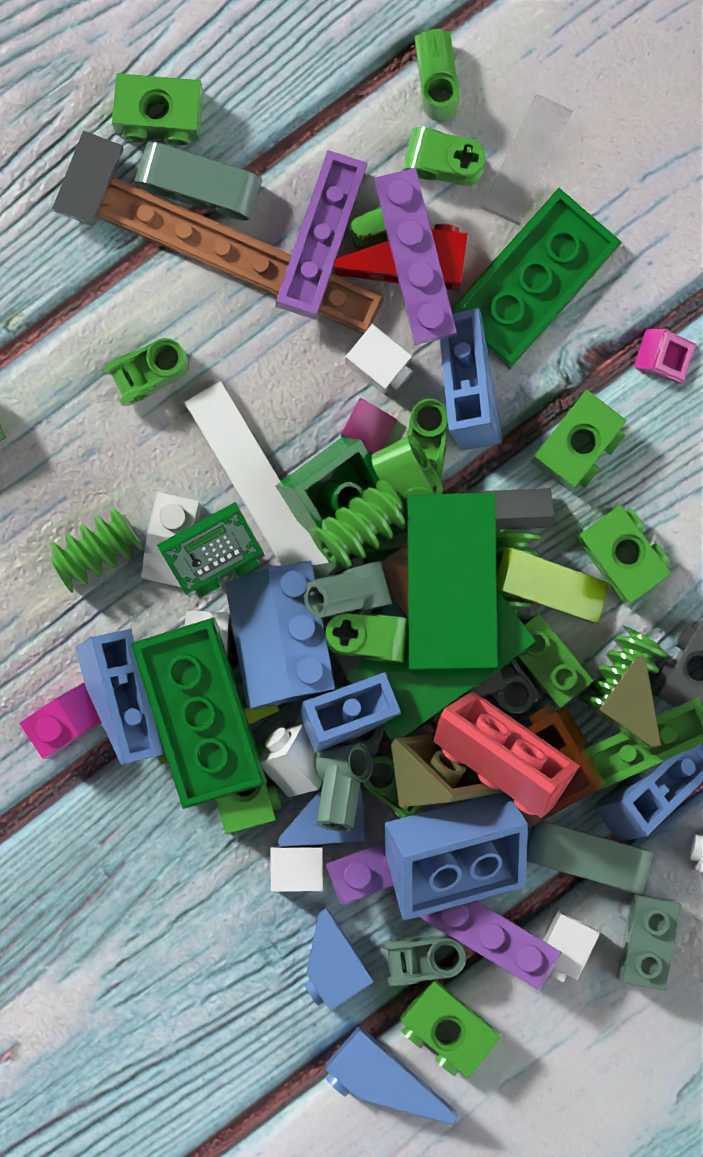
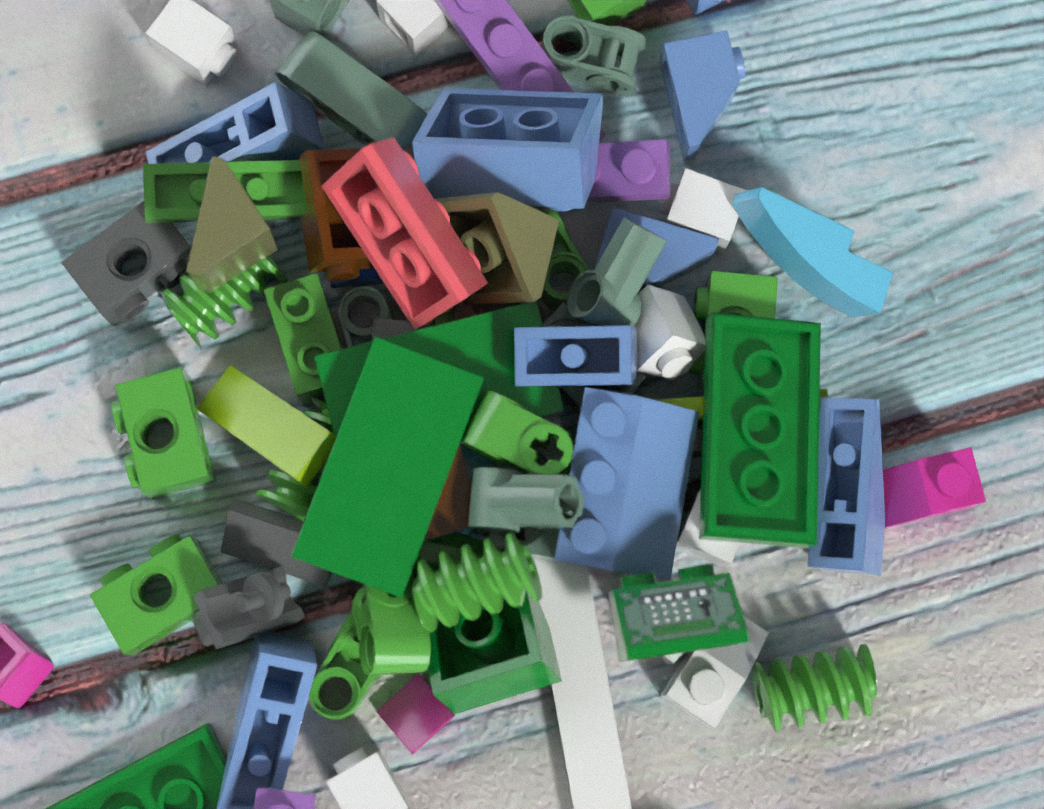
camera: 165 degrees left, 5 degrees down
(204, 862) = (814, 252): none -> medium azure slope
(514, 452) = (245, 608): none -> dark grey hips

